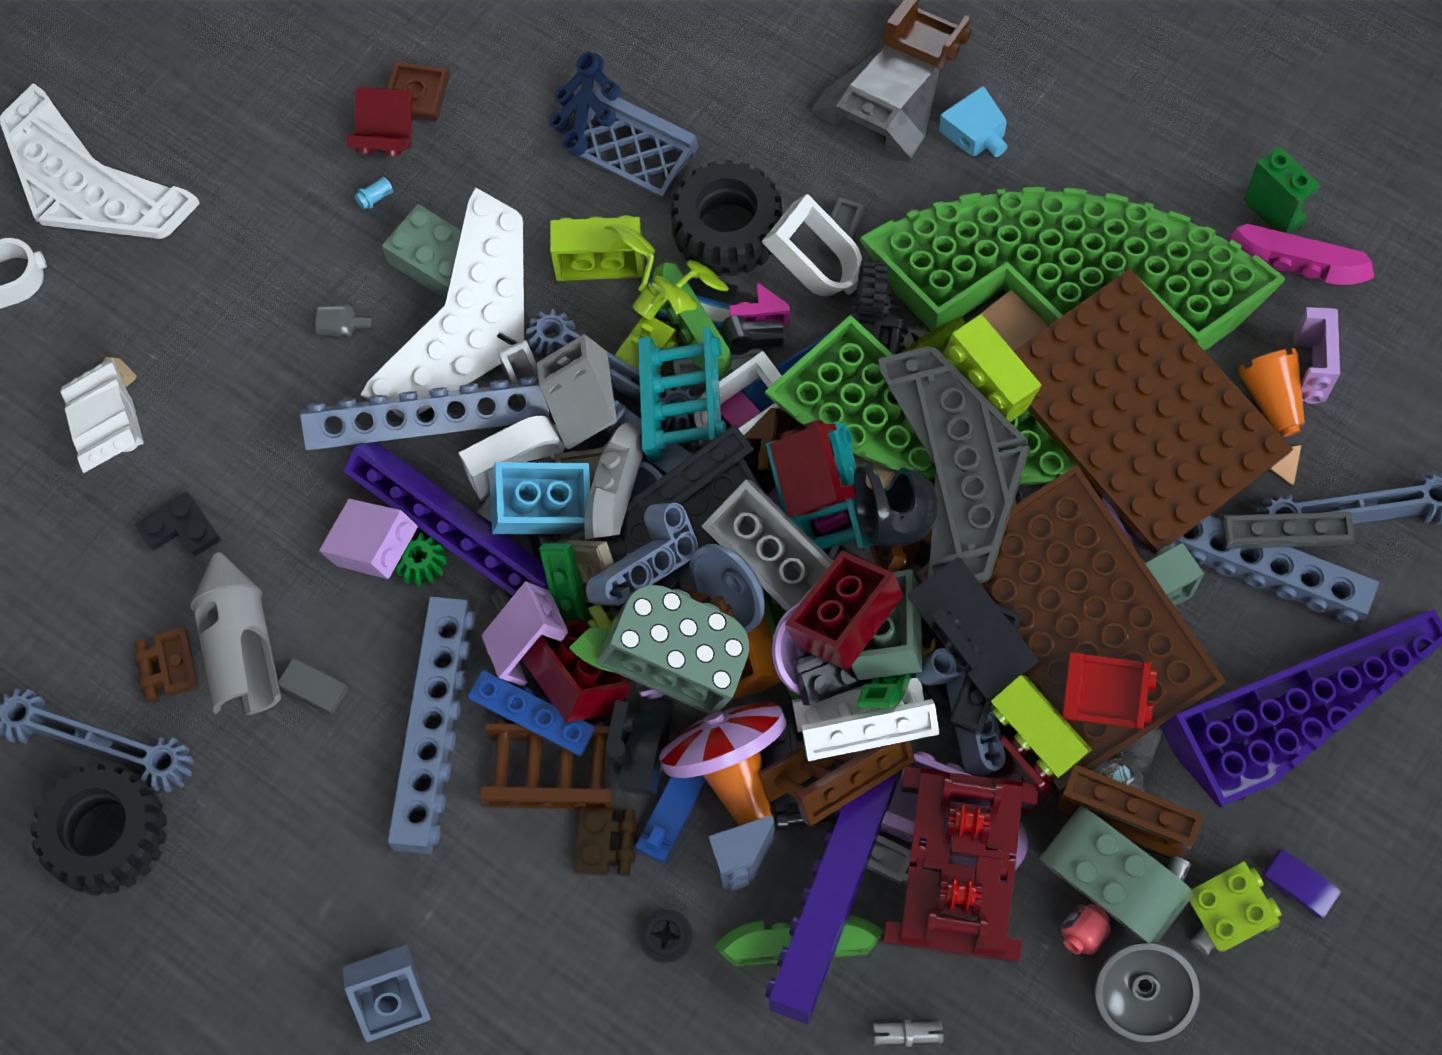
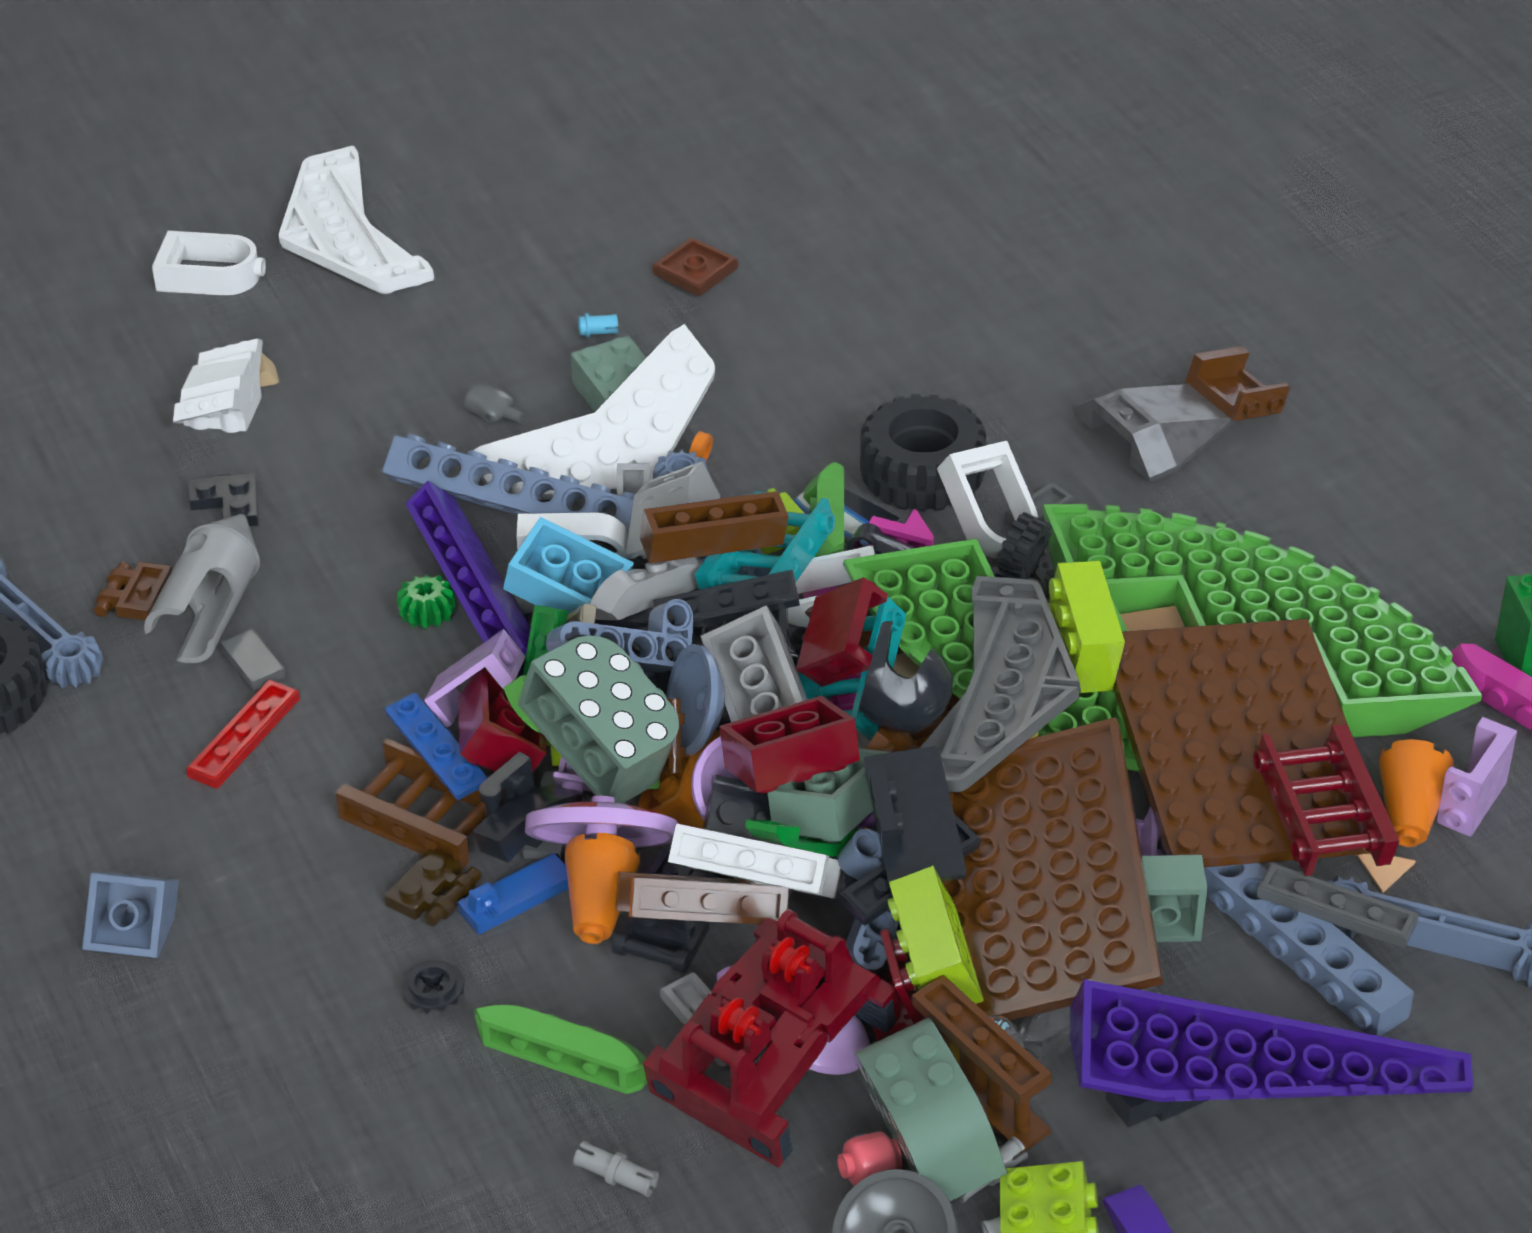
camera: 25 degrees right, 25 degrees down
(354, 765) = (242, 734): none -> red tile
(368, 538) = (388, 560): lavender brick -> none
(382, 121) = (645, 272): dark red bracket -> none
(441, 616) = (333, 729): sand blue brick -> none
(542, 291) = (702, 445): none -> orange tile
(589, 69) = (848, 314): dark blue plant -> none
(589, 252) = (775, 428): lime brick -> none
(642, 406) = (713, 527): none -> reddish brown brick
(649, 126) = (894, 360): sand blue fence -> none
(656, 295) = (805, 461): lime plant -> none
(741, 851) = (559, 937): sand blue slope -> none
(828, 903) = (612, 1004): dark purple brick -> none
(975, 124) = (1236, 473): medium azure torso -> none
(1109, 691) = (1025, 939): red panel -> none
(1261, 425) = (1350, 778): none -> dark red fence

